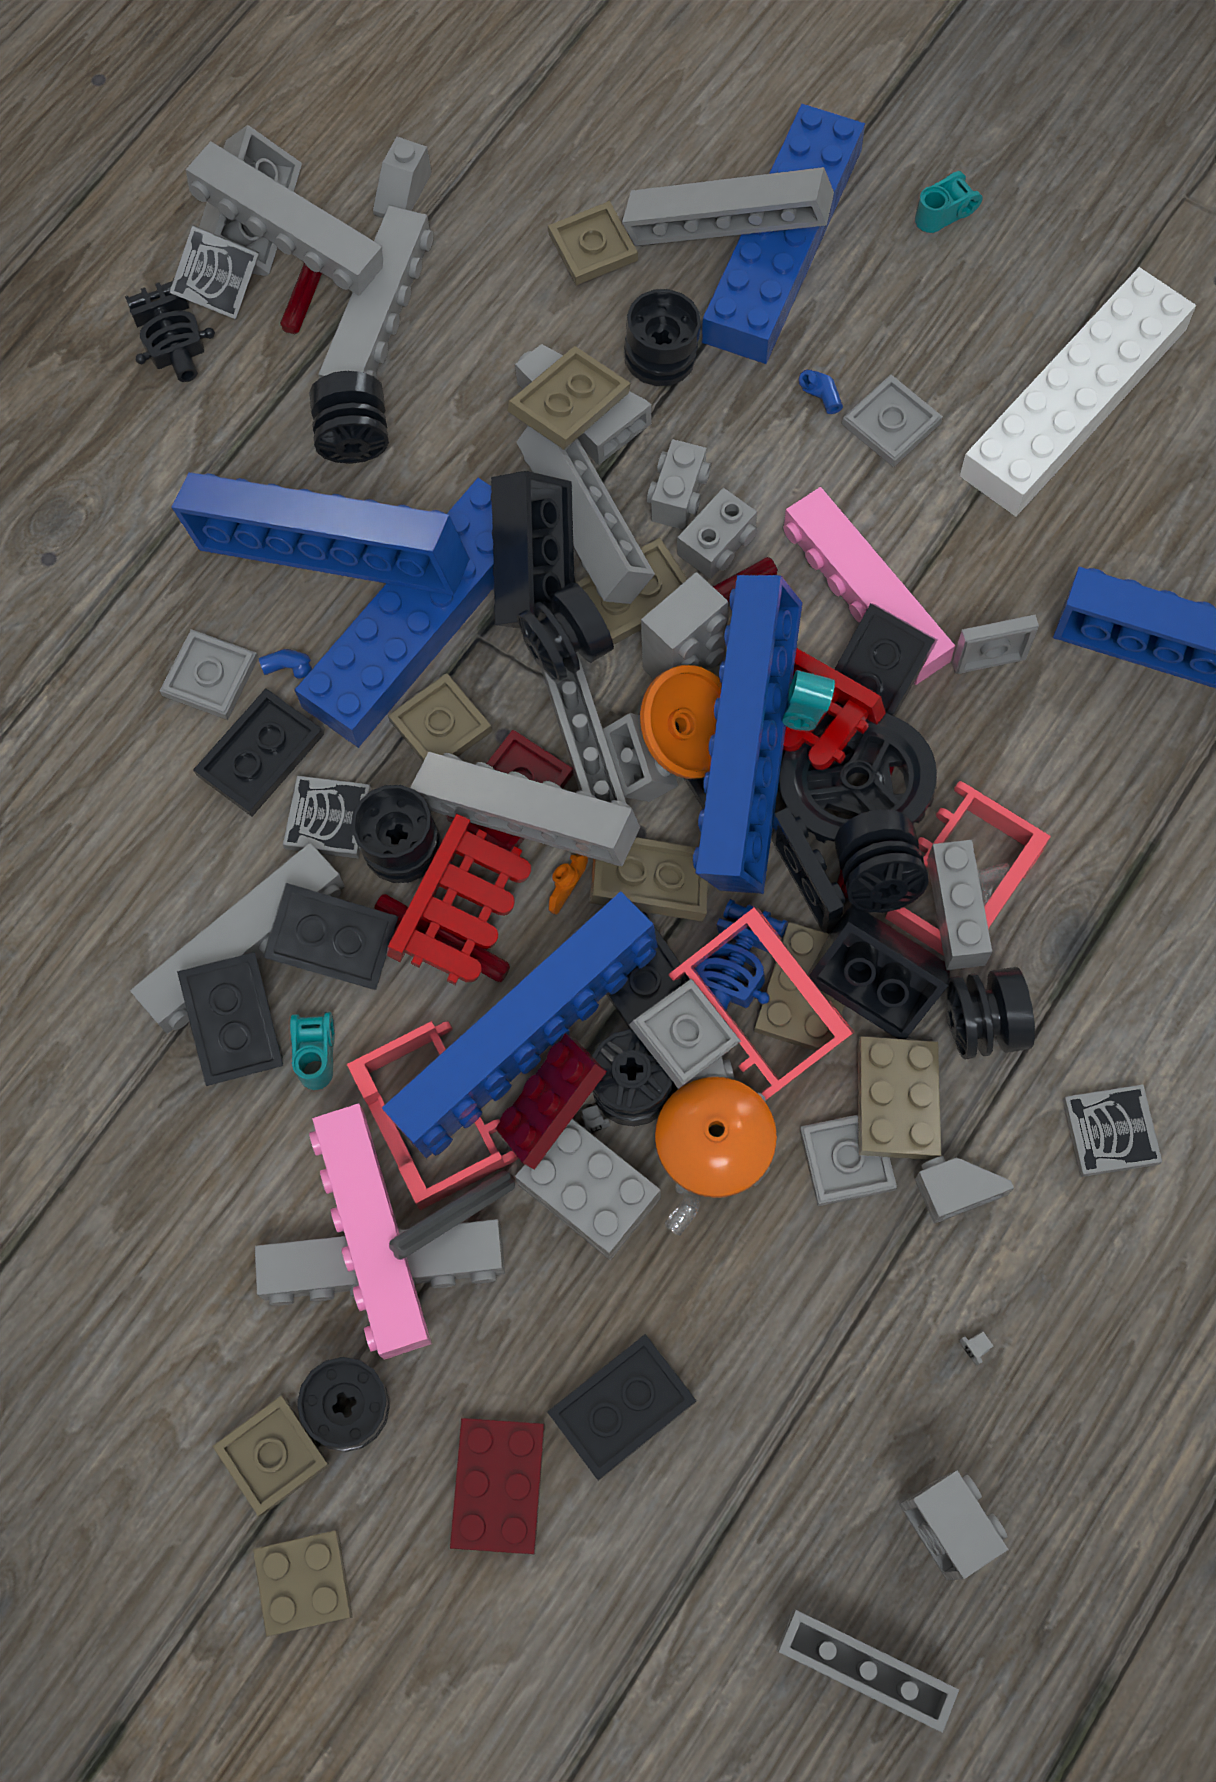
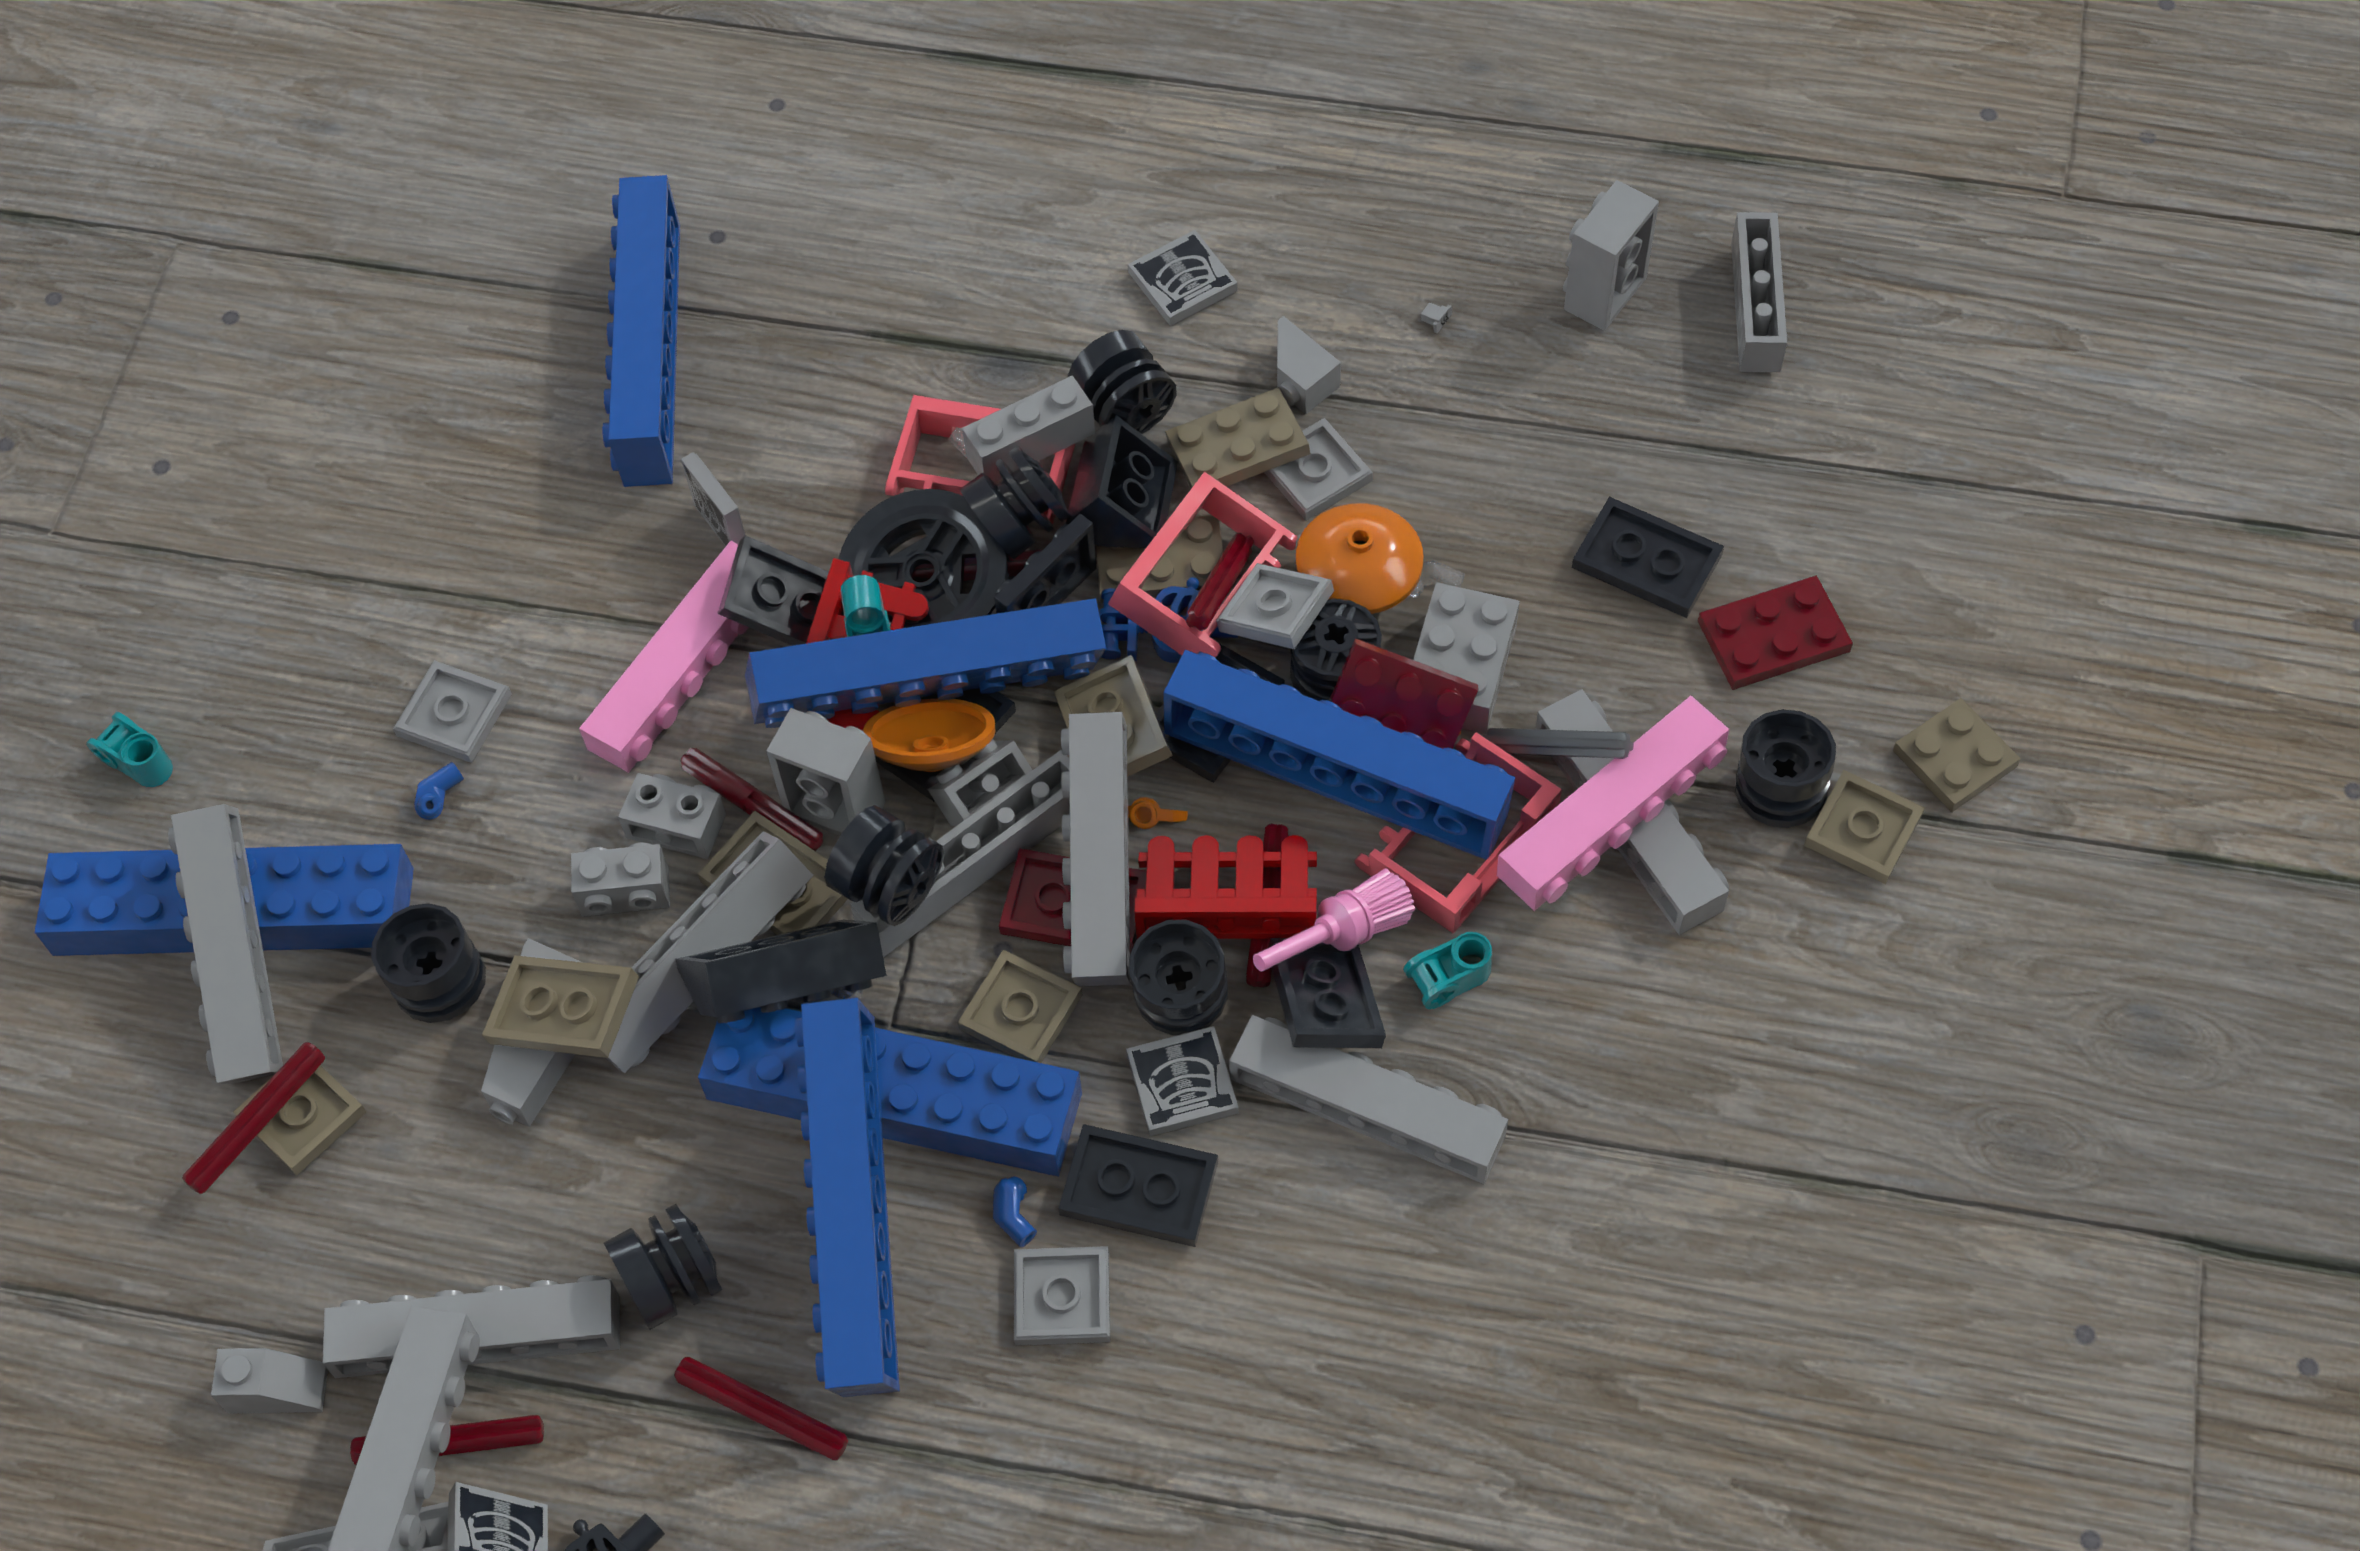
camera: 115 degrees left, 10 degrees down
(230, 1018) = (1464, 1051): black plate -> none
(244, 449) = (761, 1408): none -> dark red axle
(380, 975) = (1348, 918): none -> bright pink piece
(594, 208) = (253, 1118): none -> dark red axle
(744, 1010) = (1219, 582): none -> dark red axle
(1076, 391) = (362, 540): white brick -> none

